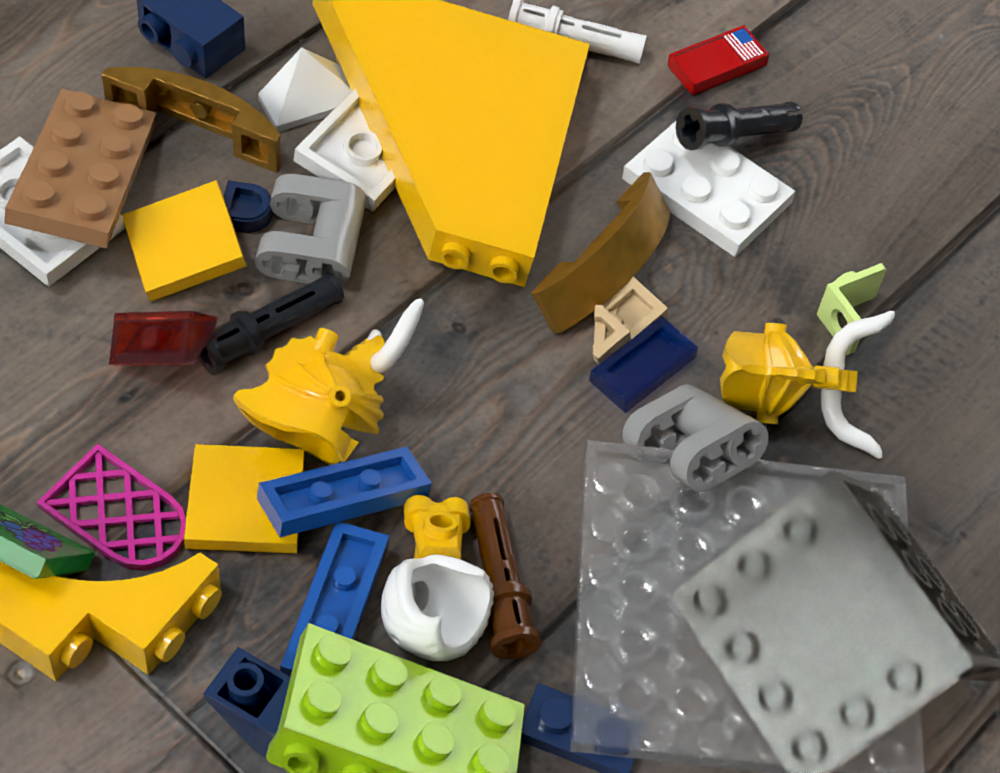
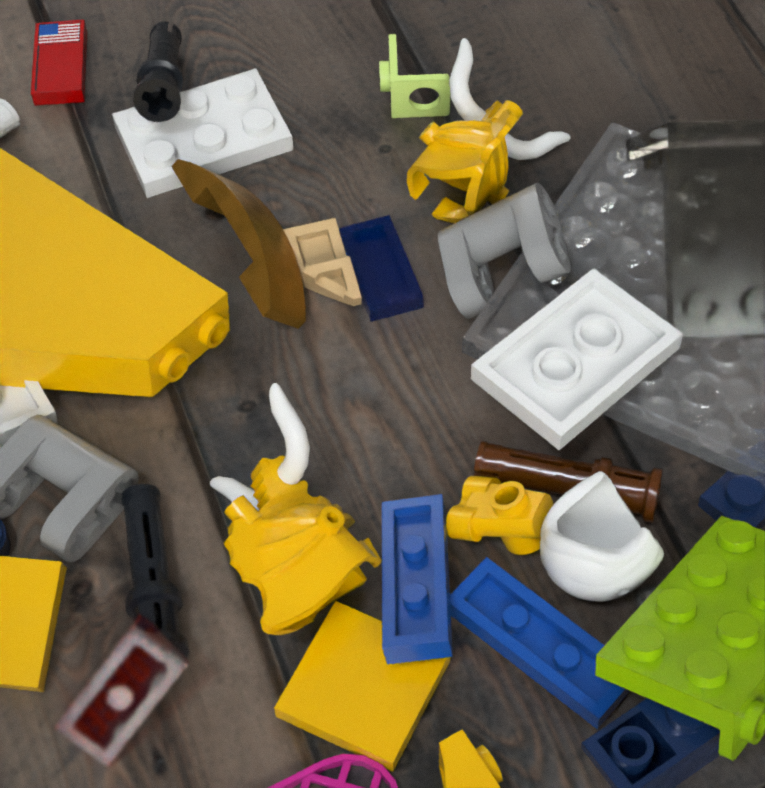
camera: 55 degrees left, 0 degrees up
(603, 524) = (576, 358): none -> white plate

